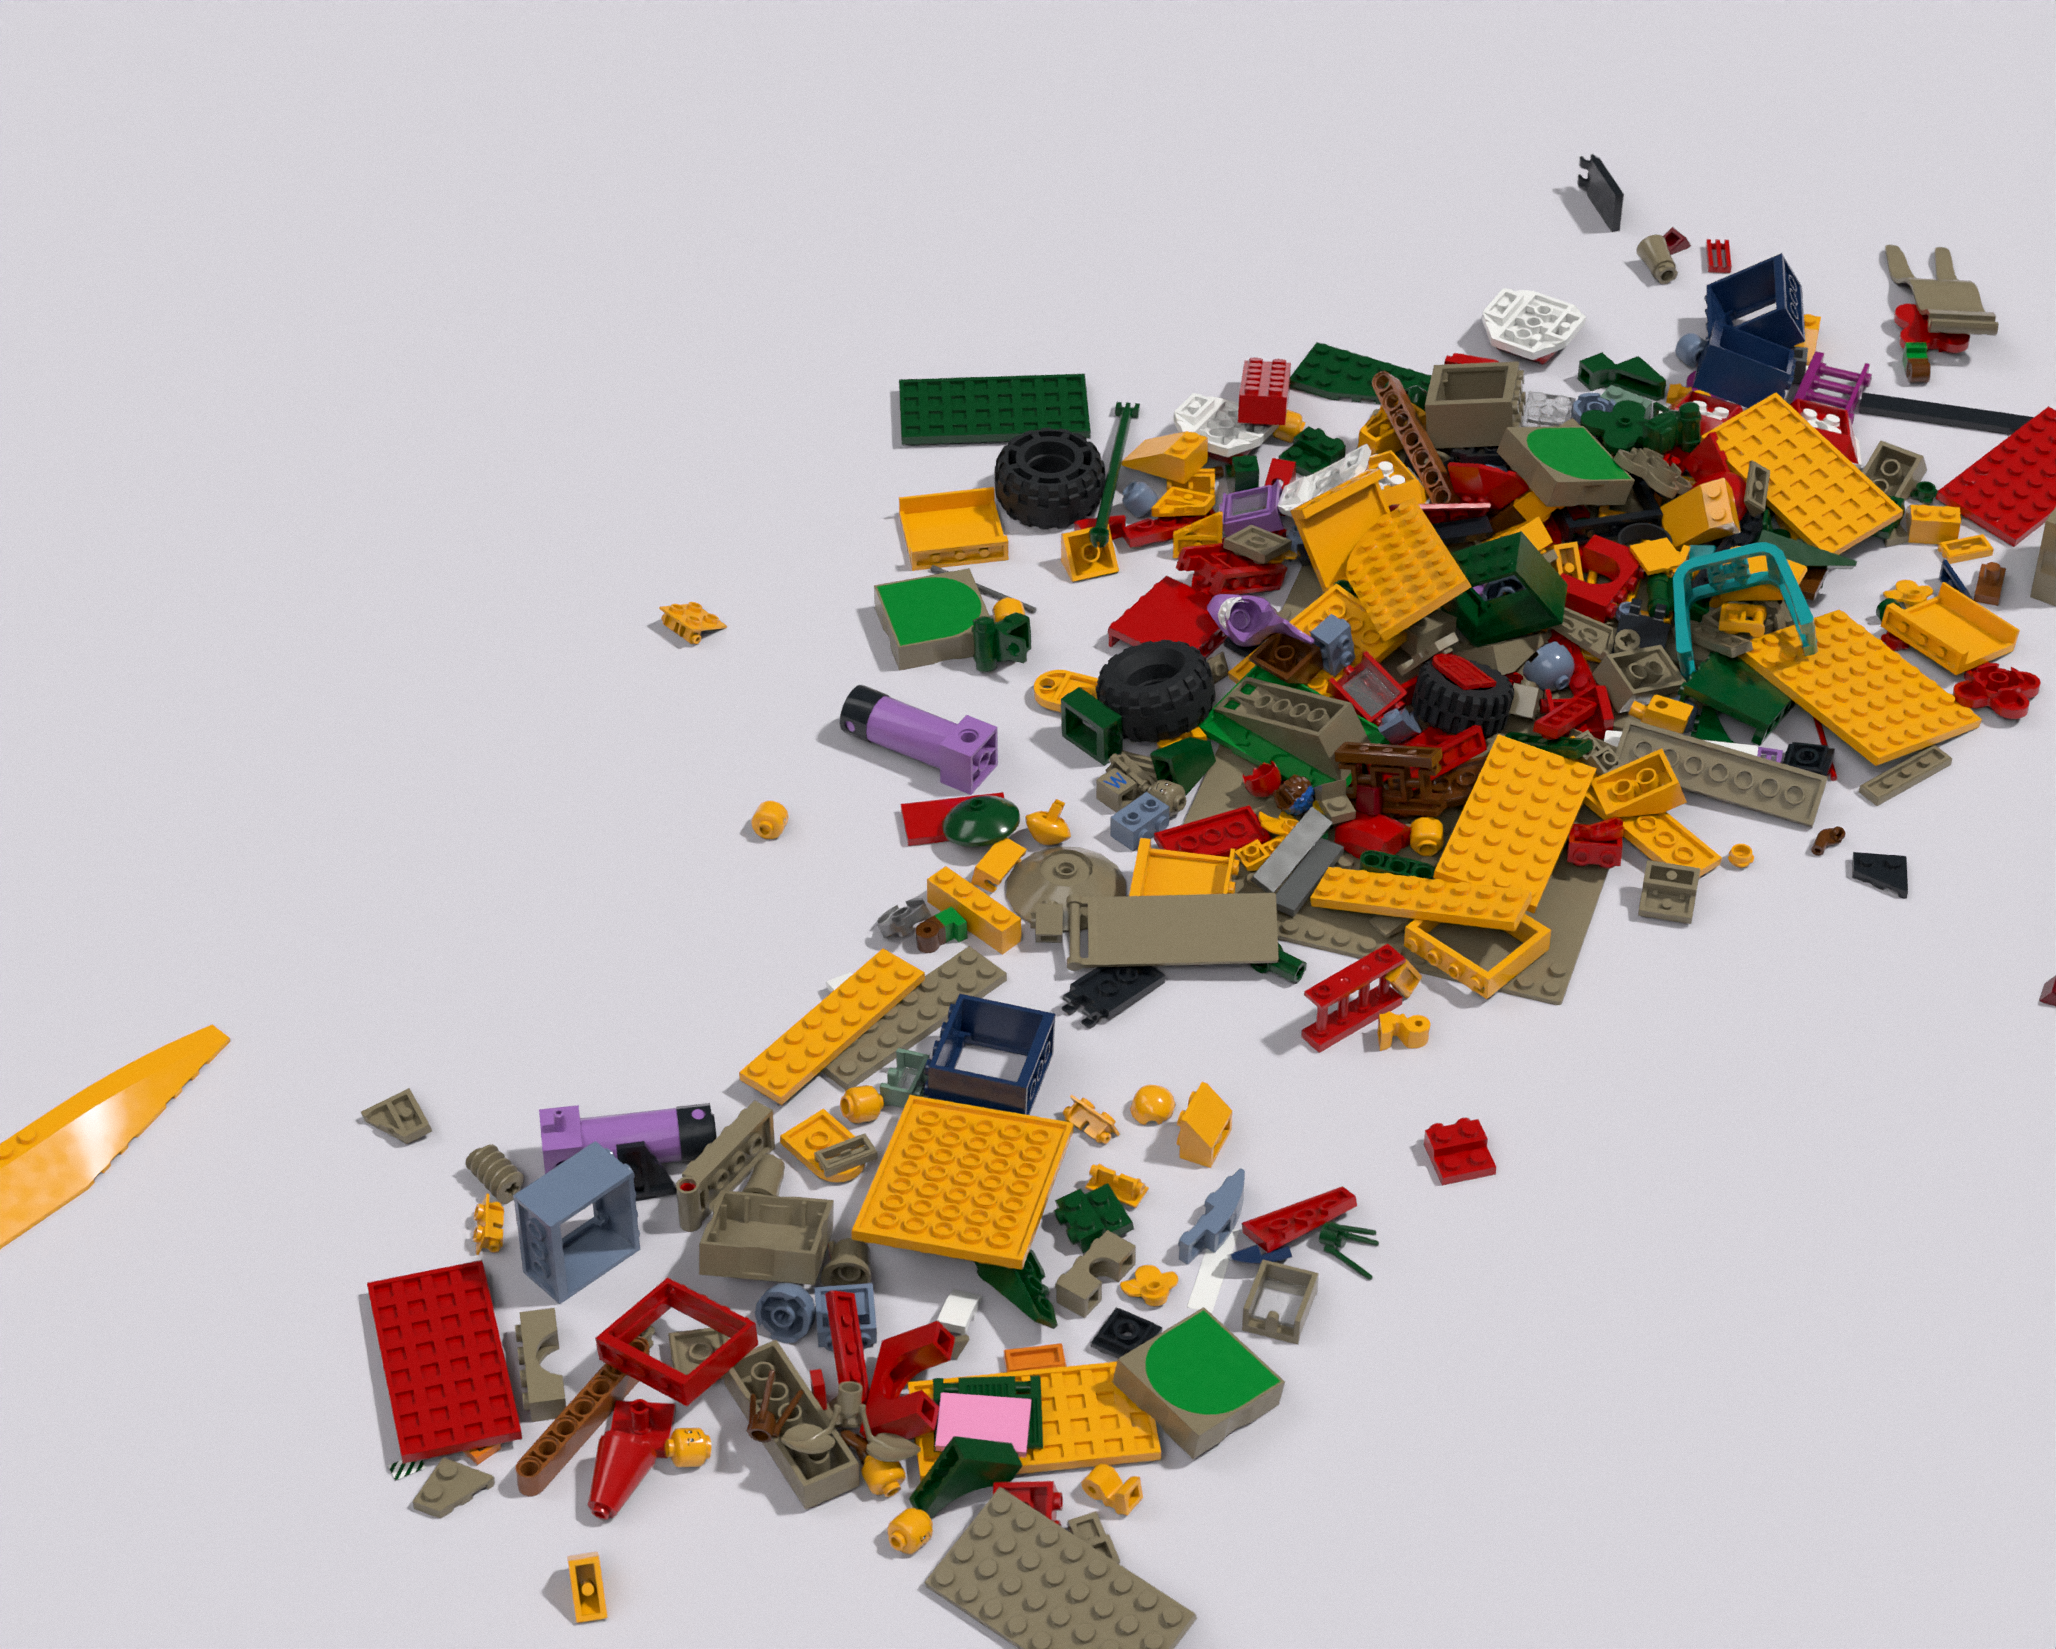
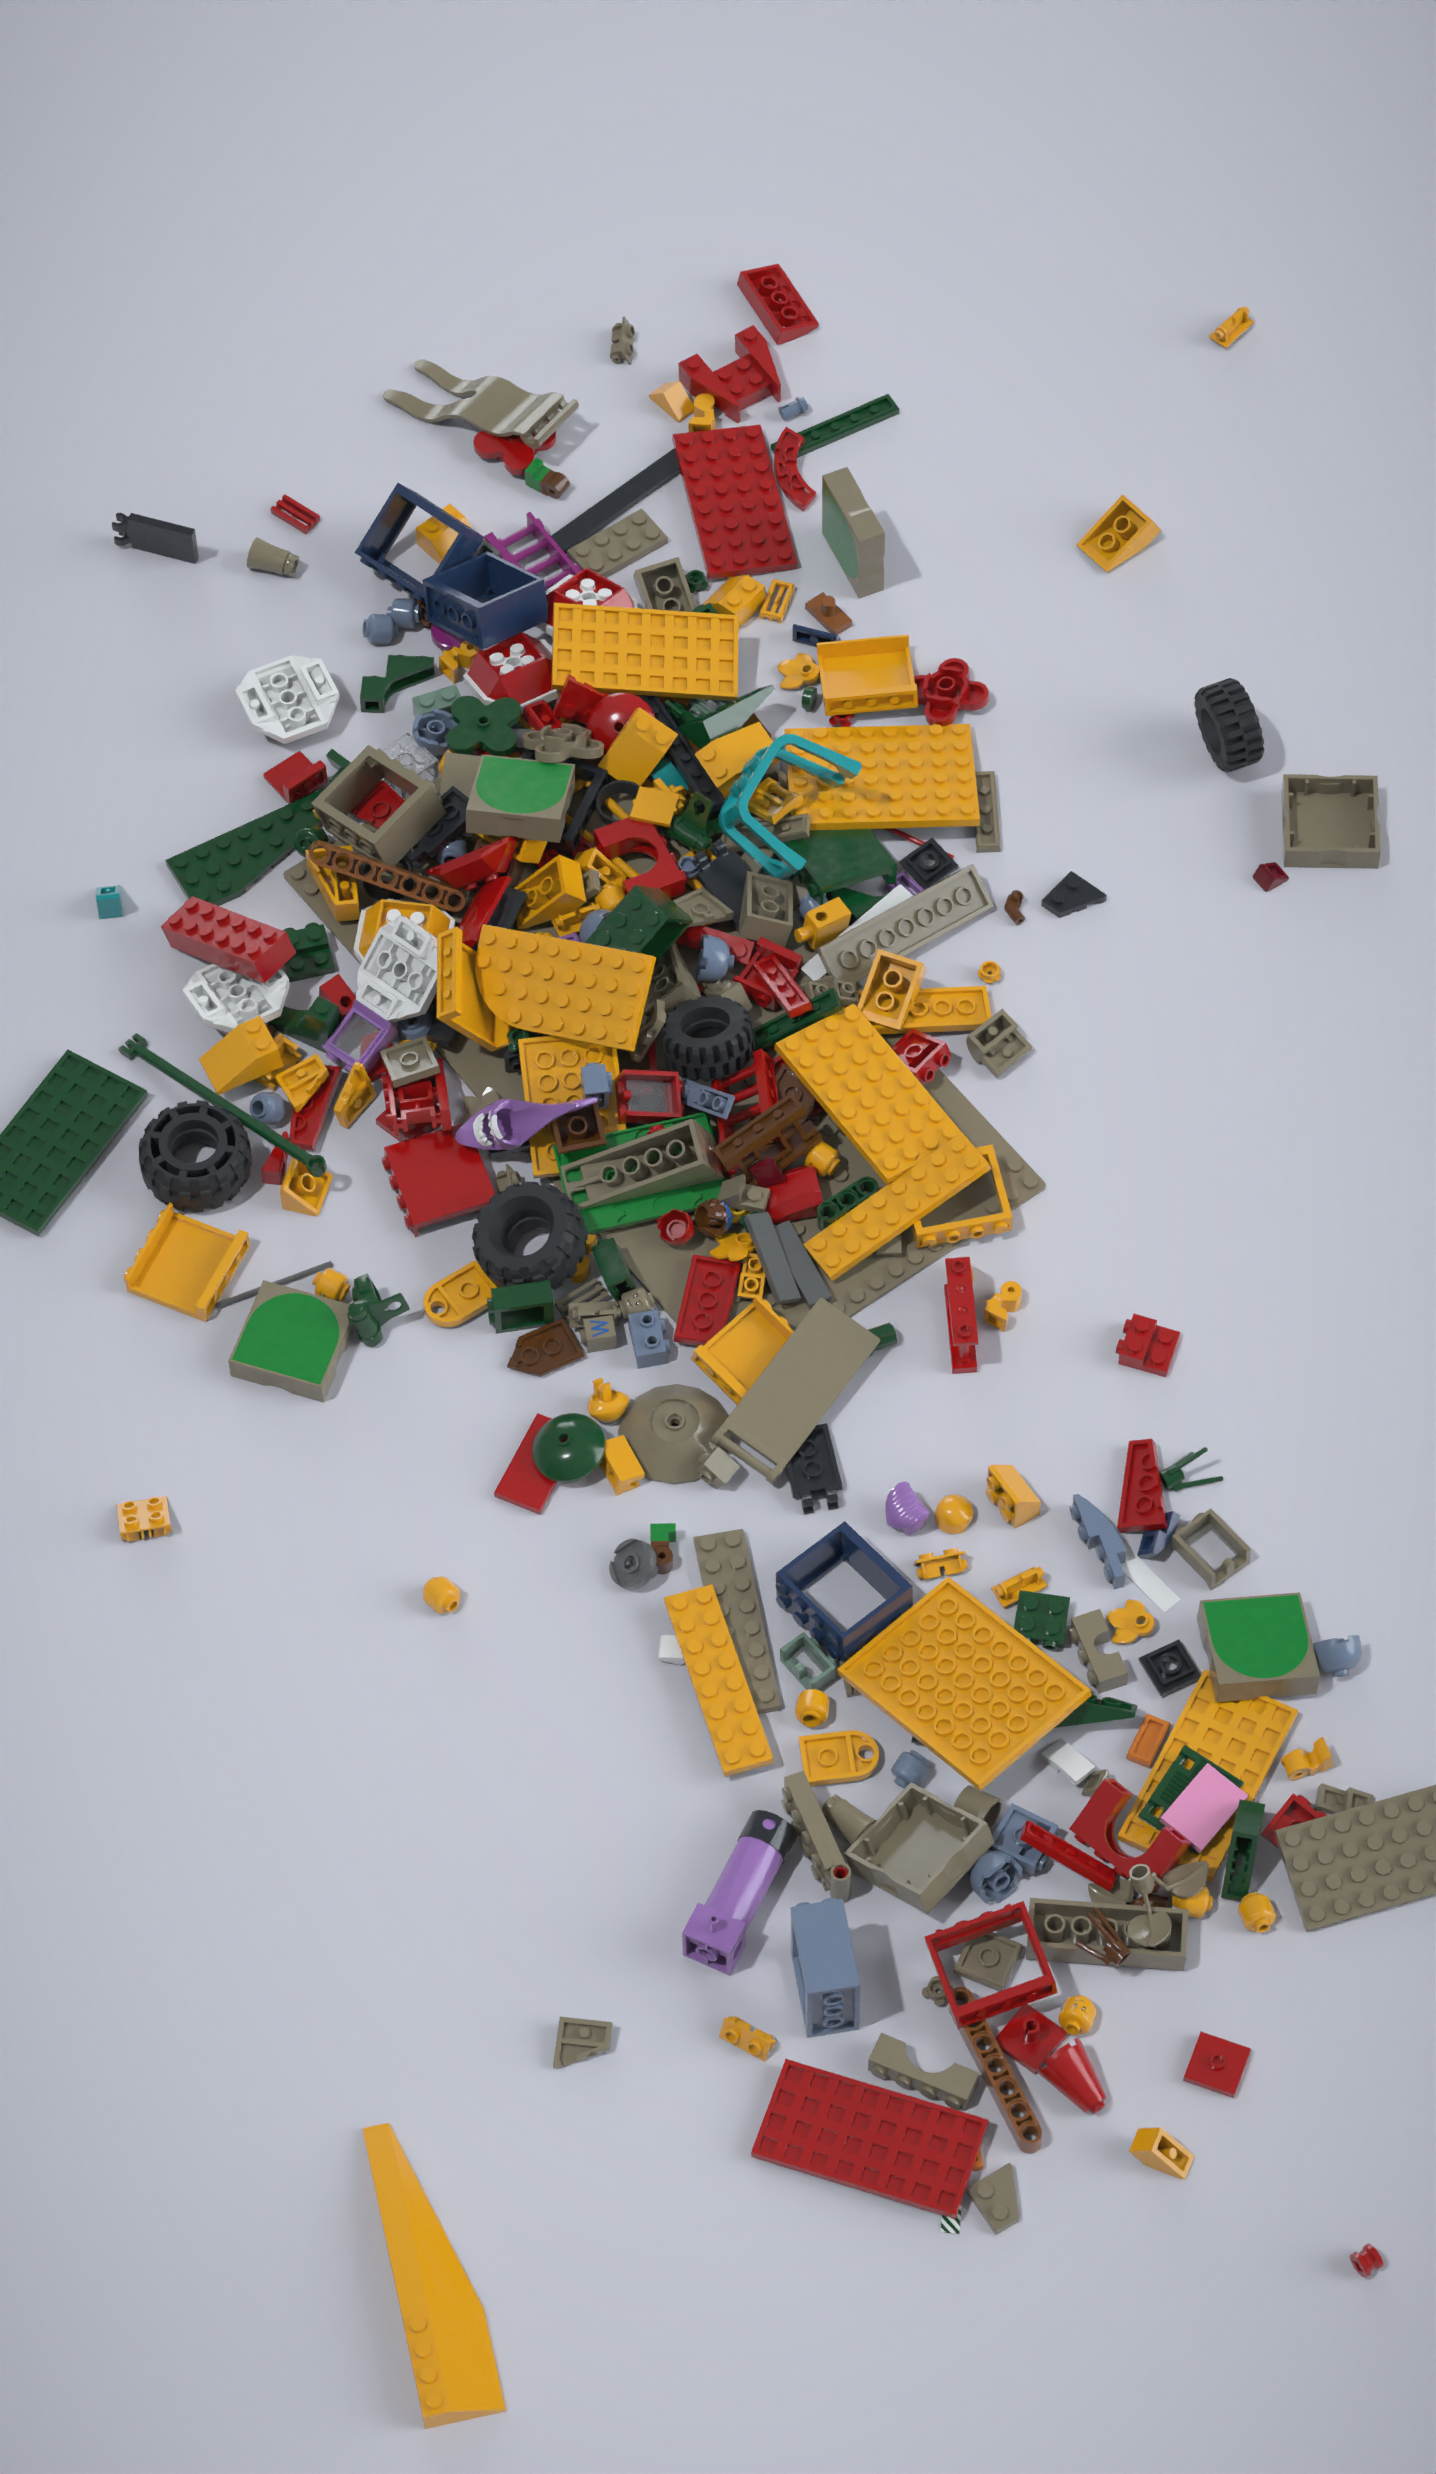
camera: 55 degrees left, 15 degrees up
(495, 1172) = (698, 2001): dark tan piece -> none
(649, 1174) = (777, 1898): black wing -> none
(721, 1585) = (1217, 2064): none -> red plate
(818, 1387) = (1082, 1894): red tile -> none
(848, 1158) = (861, 1767): dark tan tile -> none
(849, 1200) = (910, 1768): none -> sand blue head
(961, 751) = (475, 1416): medium lavender piece -> none
(983, 914) = (673, 1506): light orange brick -> none
(1071, 769) = (546, 1349): none -> reddish brown tile
(1121, 1065) = (905, 1509): none -> medium lavender hair
(1244, 332) = (109, 902): none -> teal slope
(1246, 1449) = (1338, 1655): none -> sand blue cylinder
(1462, 672) = (696, 1022): red window -> none
(1603, 831) = (917, 1041): red tile -> none
(1628, 636) = (732, 898): dark tan wheel -> none
(1661, 345) = (379, 629): none -> sand blue head
(1673, 428) = (529, 696): dark green piece -> none
(1676, 241) = (249, 531): dark red slope -> none
(1756, 488) = (645, 690): dark tan slope -> none
(1916, 435) = (619, 544): none -> dark tan plate

